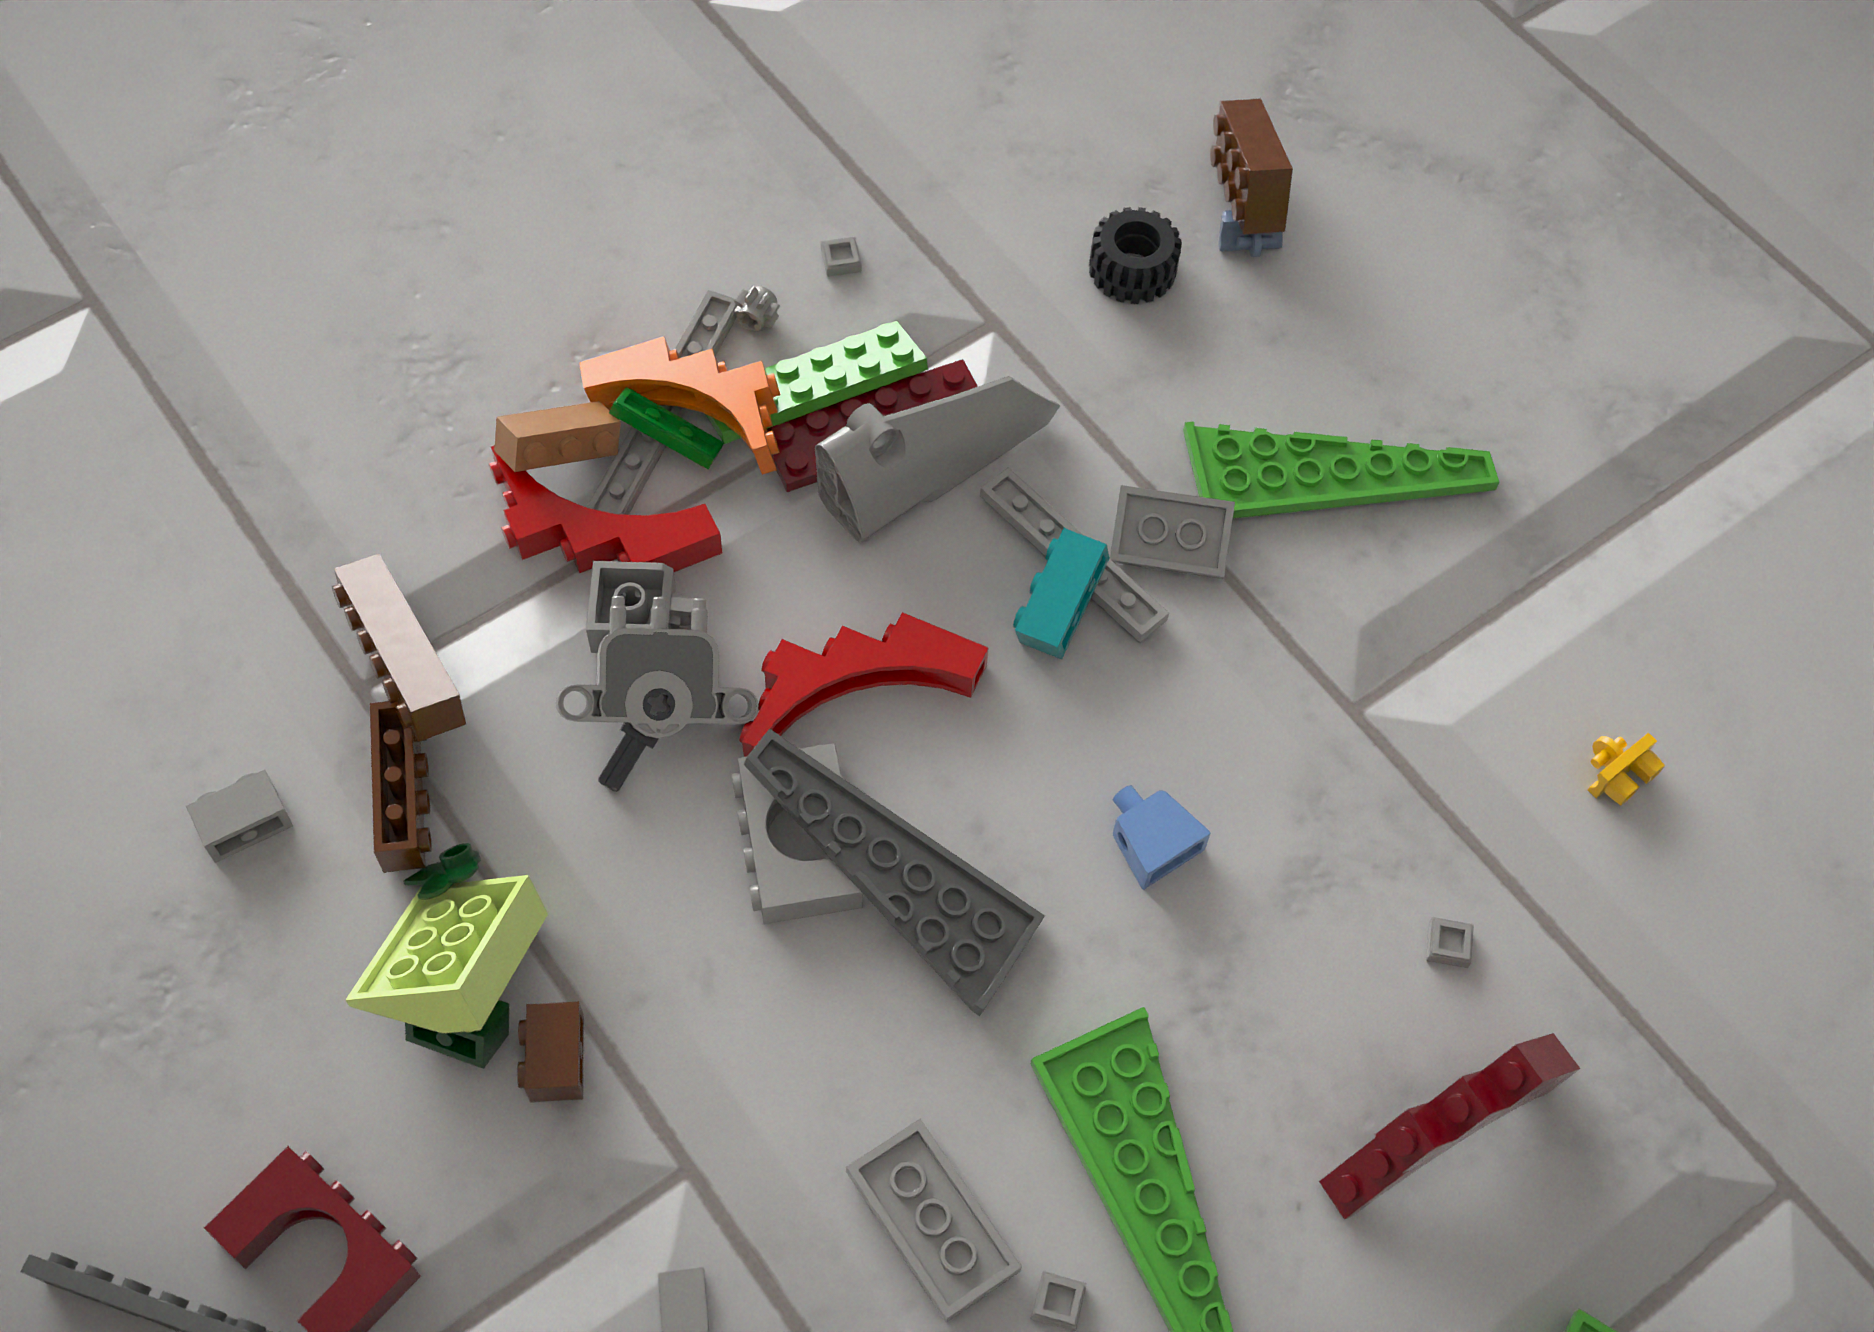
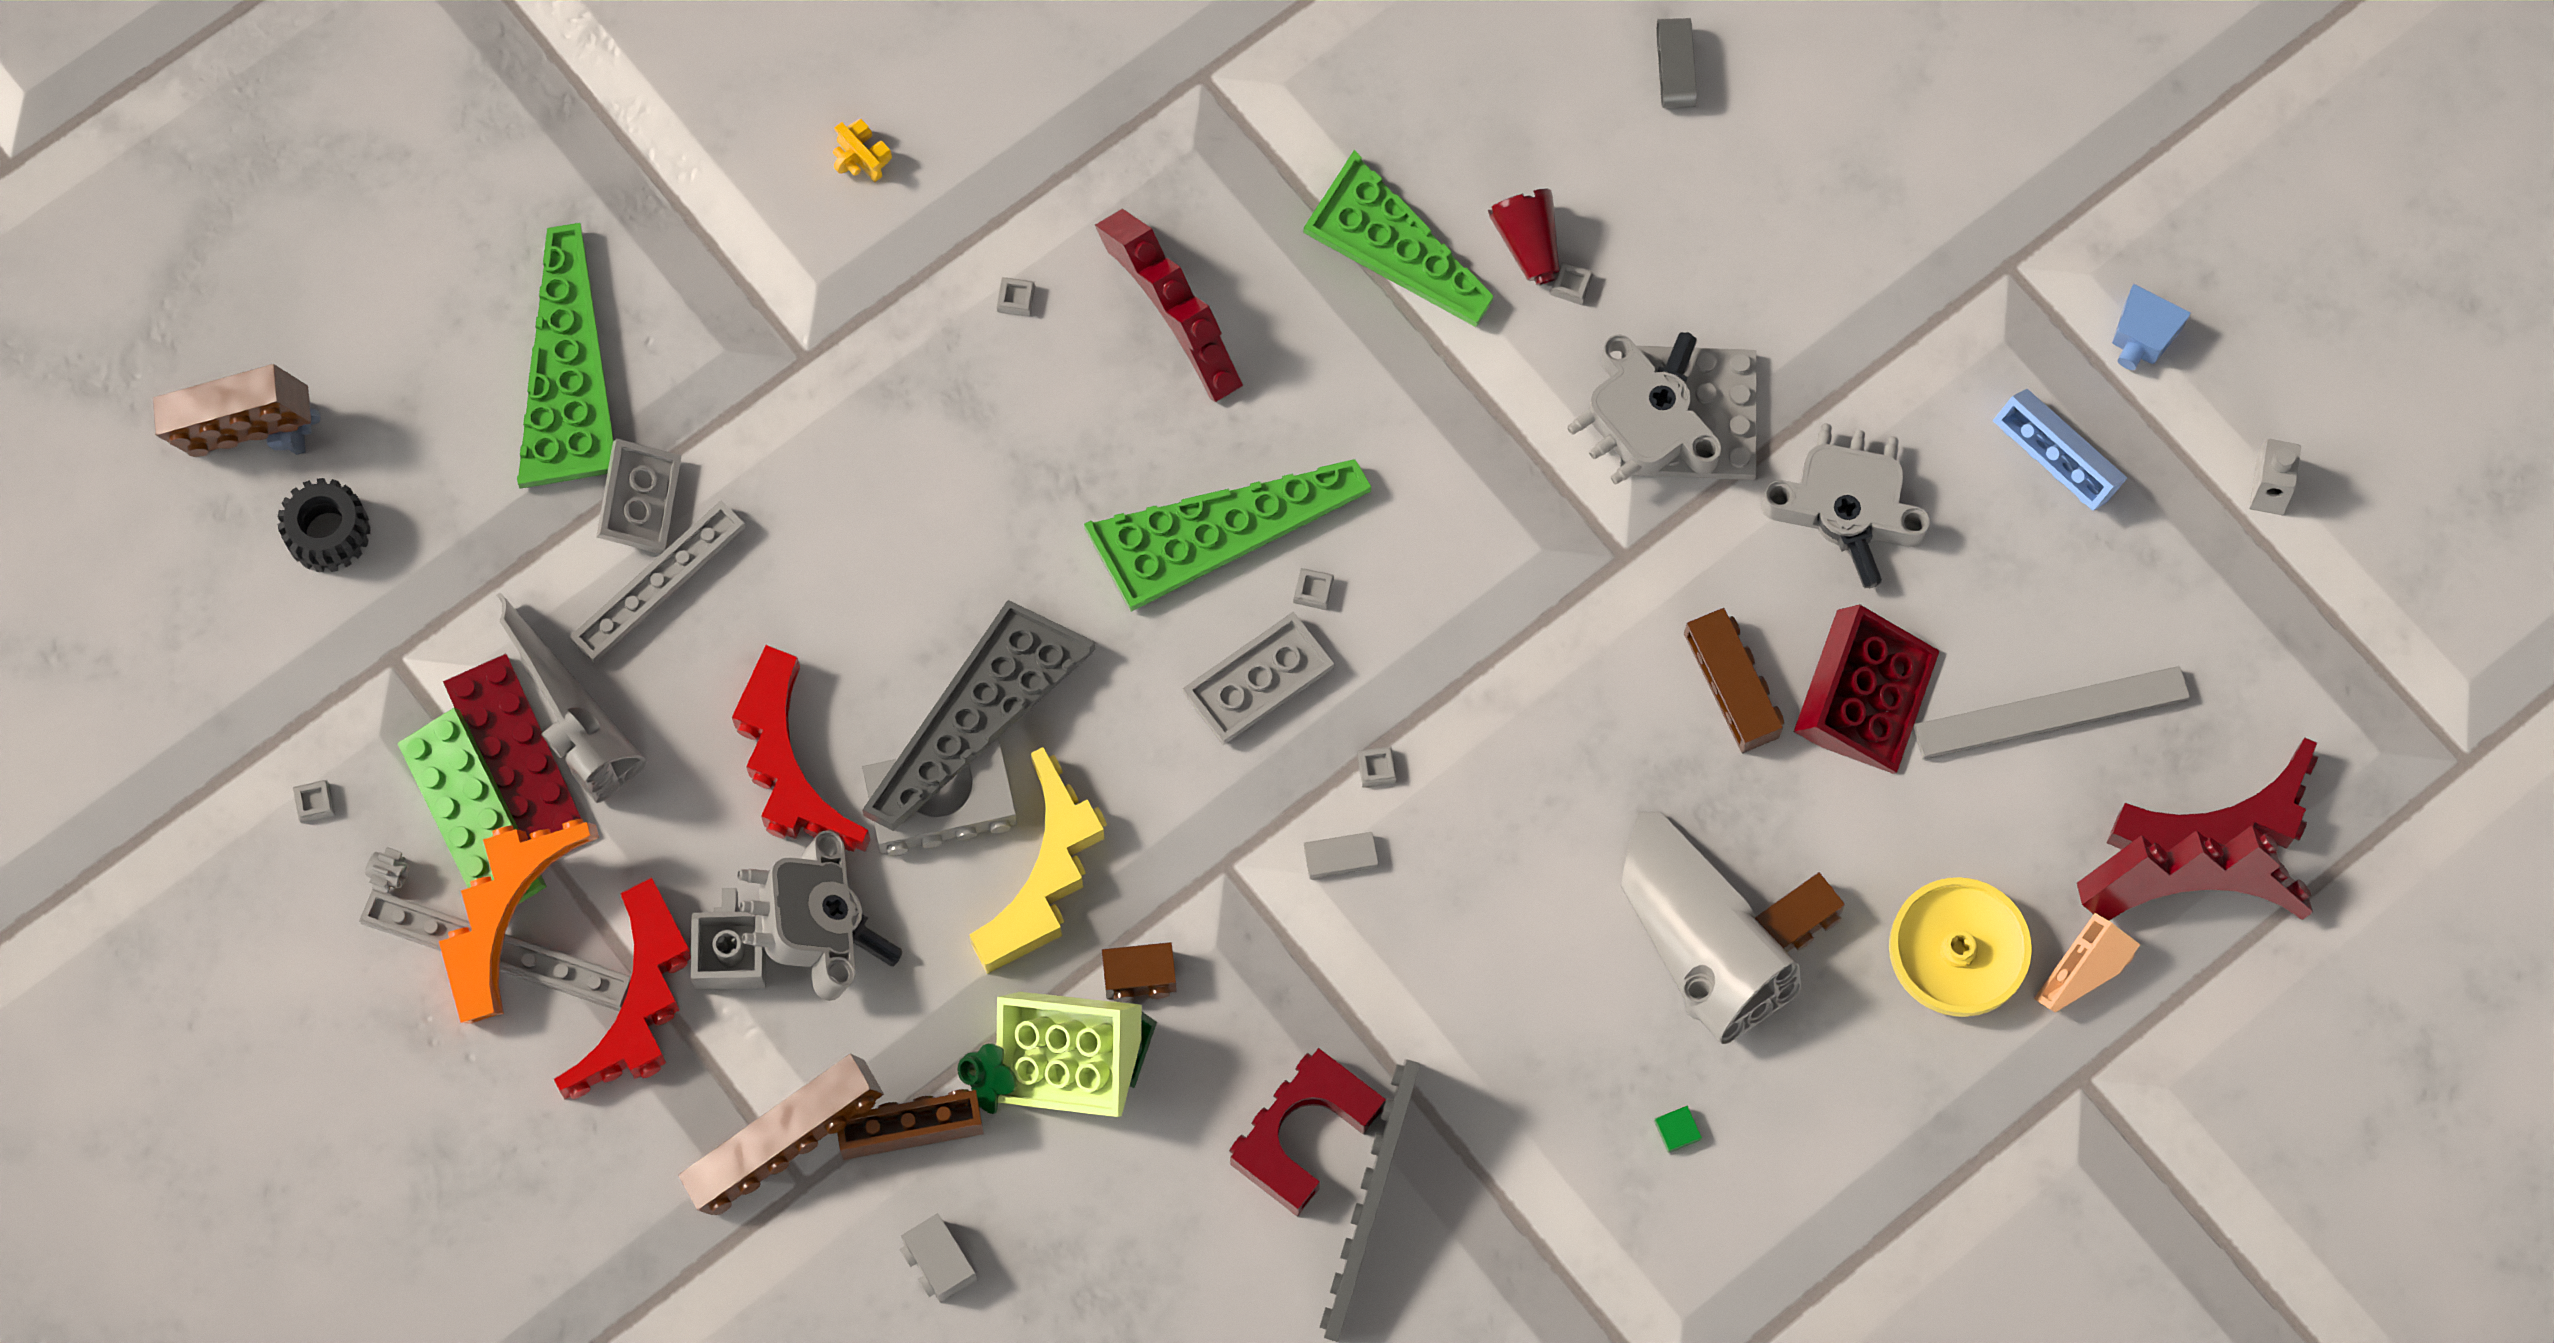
camera: 90 degrees left, 10 degrees up
(556, 436) = (552, 1027): medium nougat brick -> none
(666, 427) = (533, 937): green tile -> none
(693, 959) = (1029, 919): none -> light yellow arch
(1061, 593) = (707, 586): teal brick -> none
(1156, 834) = (932, 514): medium blue torso -> none

